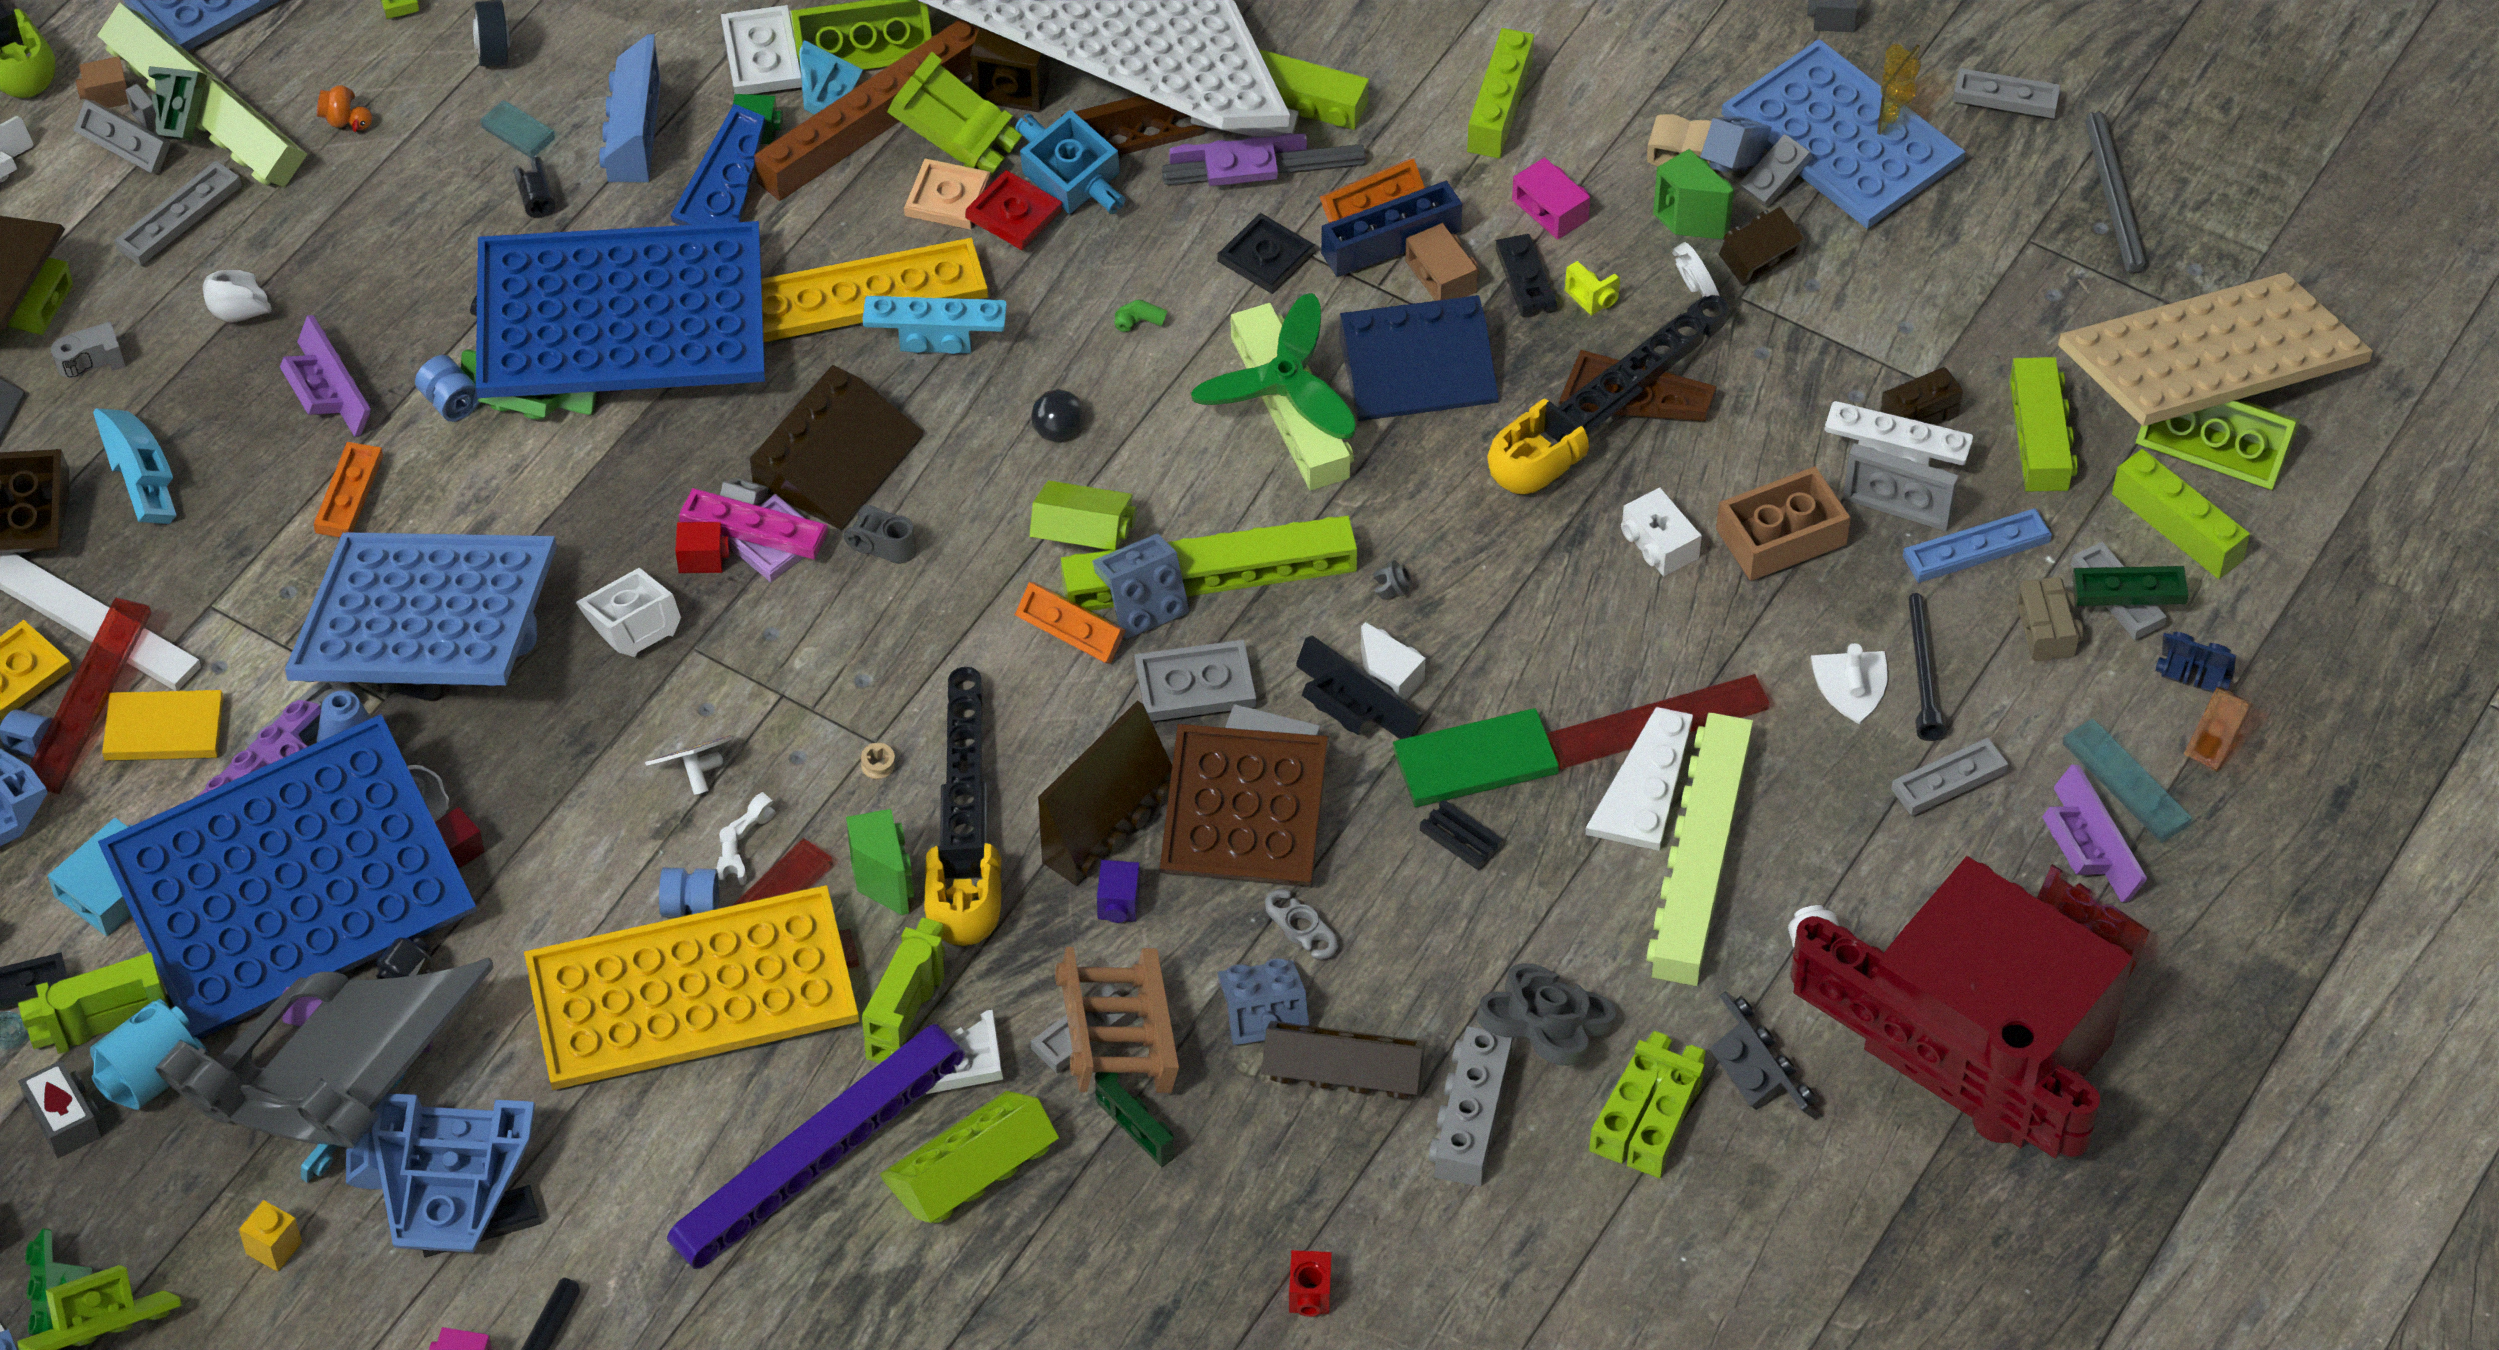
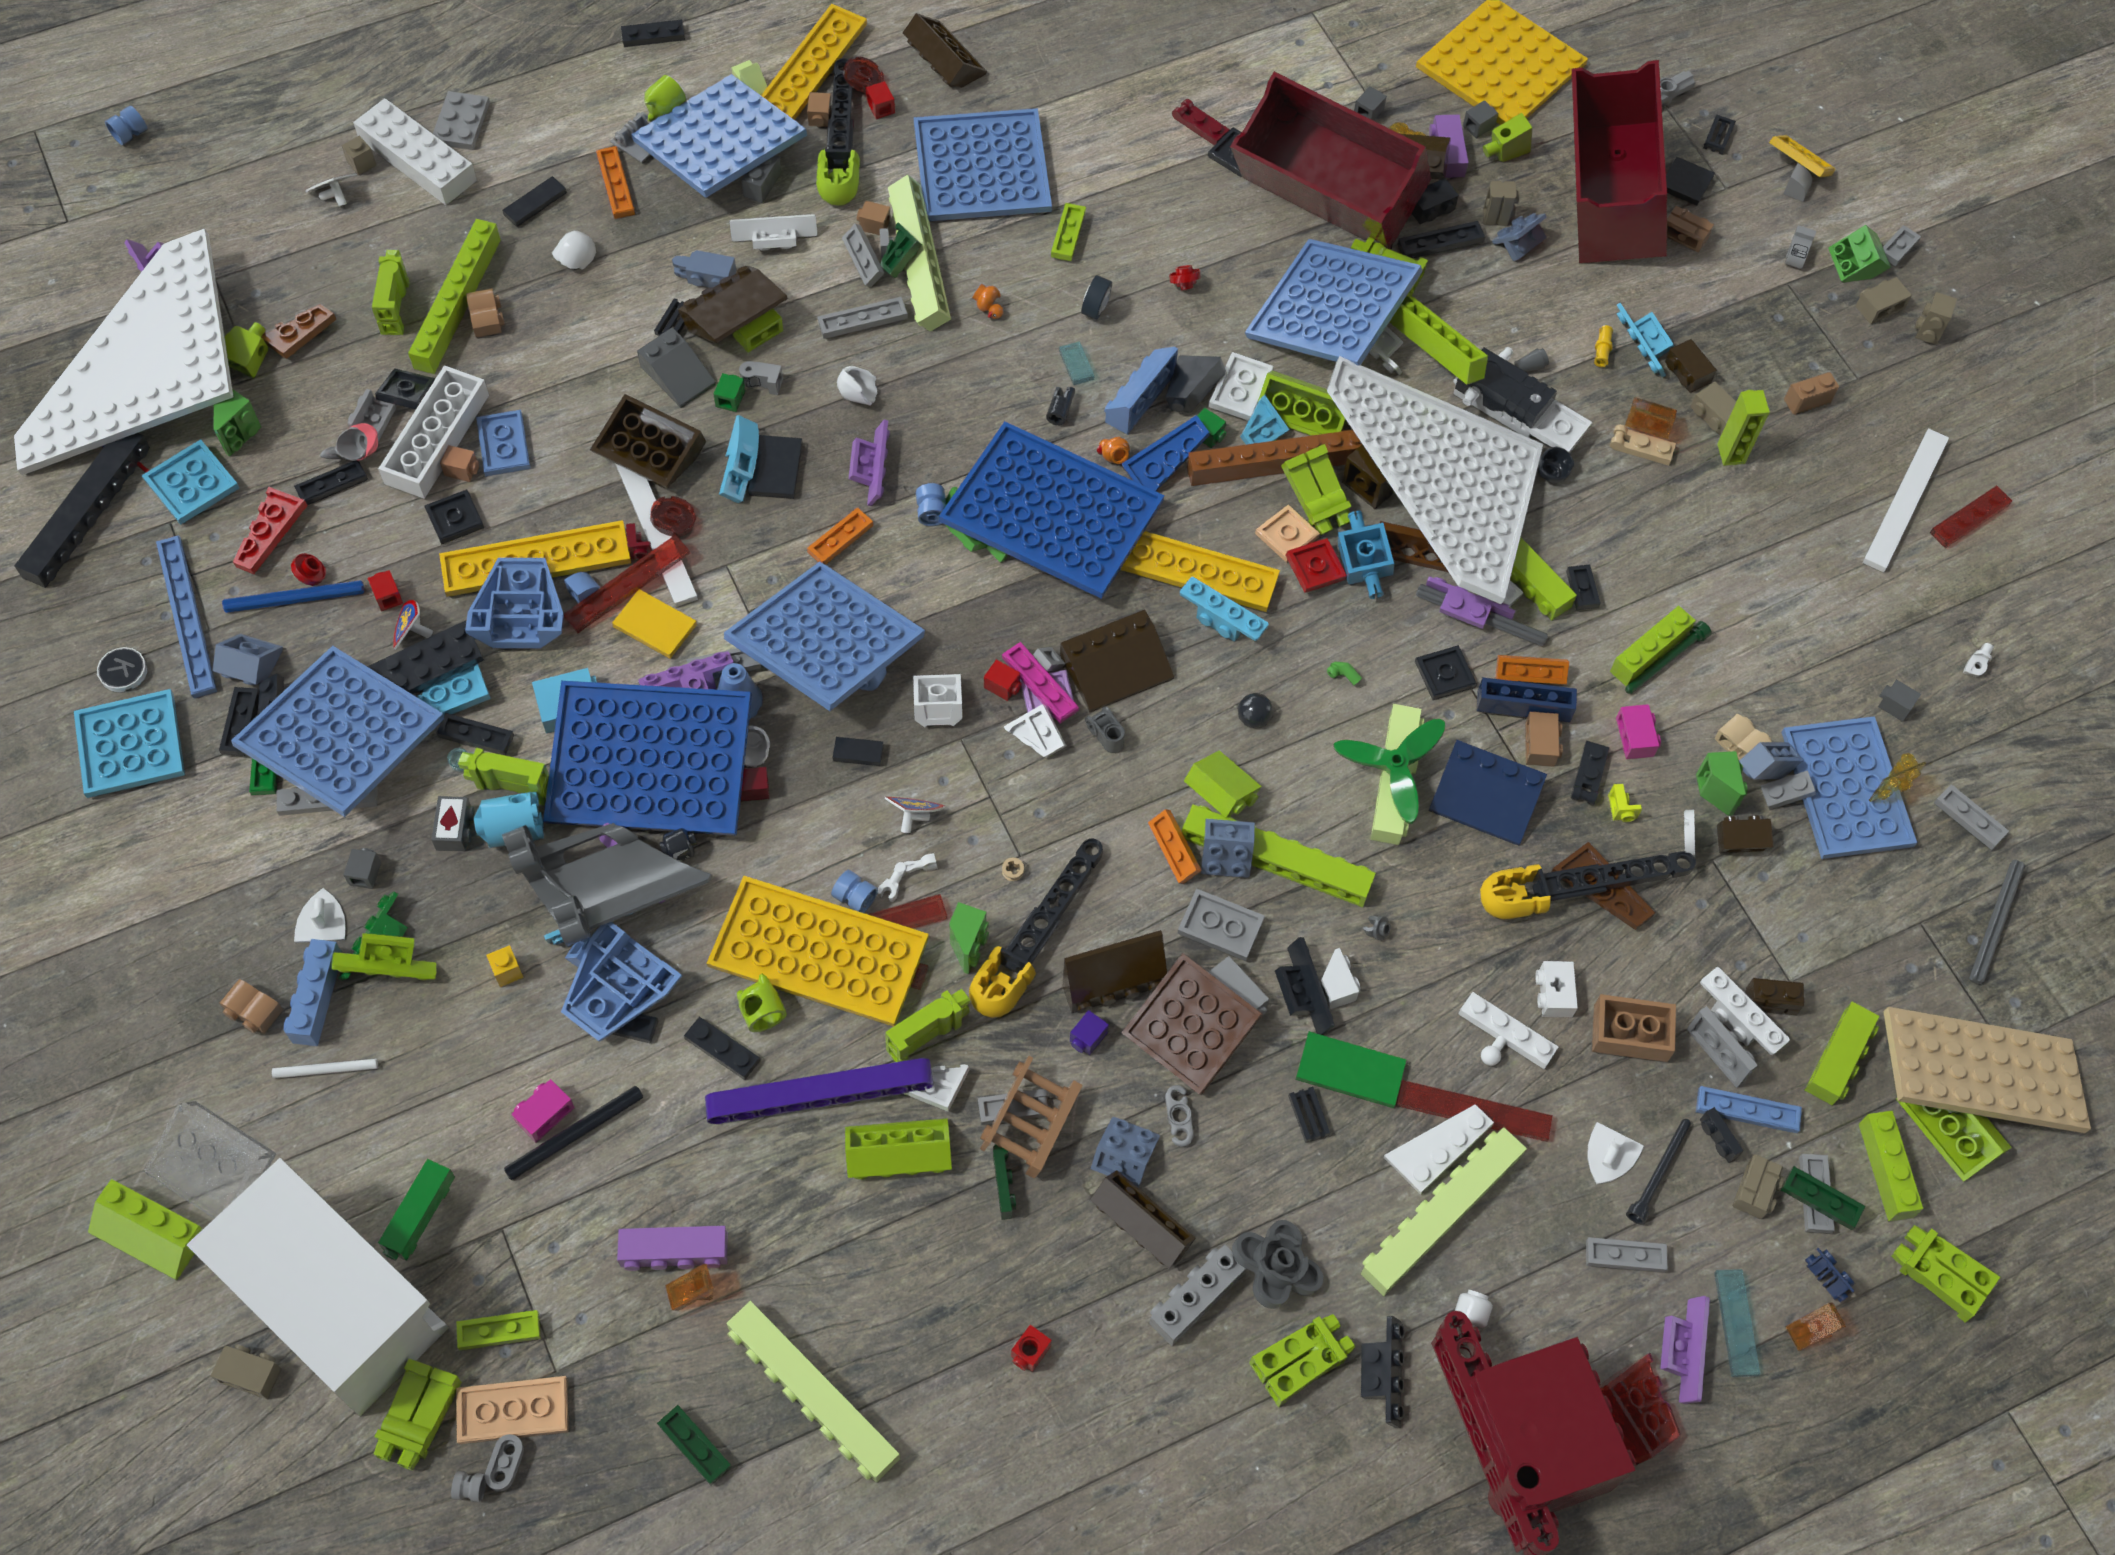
camera: 30 degrees right, 10 degrees up
(57, 392) = (729, 392): none -> green brick
(70, 643) = (636, 548): none -> dark red bracket
(90, 580) = (672, 516): none -> clear red tile
(195, 452) = (776, 467): none -> black tile
(565, 731) = (858, 751): none -> black tile
(644, 1173) = (722, 1048): none -> black plate
(648, 205) = (1114, 450): none -> orange animal
(664, 1089) = (761, 1005): none -> lime piece
(695, 71) = (1193, 381): none -> black slope
(792, 583) = (1038, 731): none -> white wing
(1362, 61) = (1584, 586): none -> black plate
(1545, 52) = (1698, 633): none -> dark green piece
(1635, 614) = (1507, 1032): none -> white plate
(1966, 586) = (1725, 1142): none -> black plate
(2319, 591) = (1945, 1271): none -> lime hips

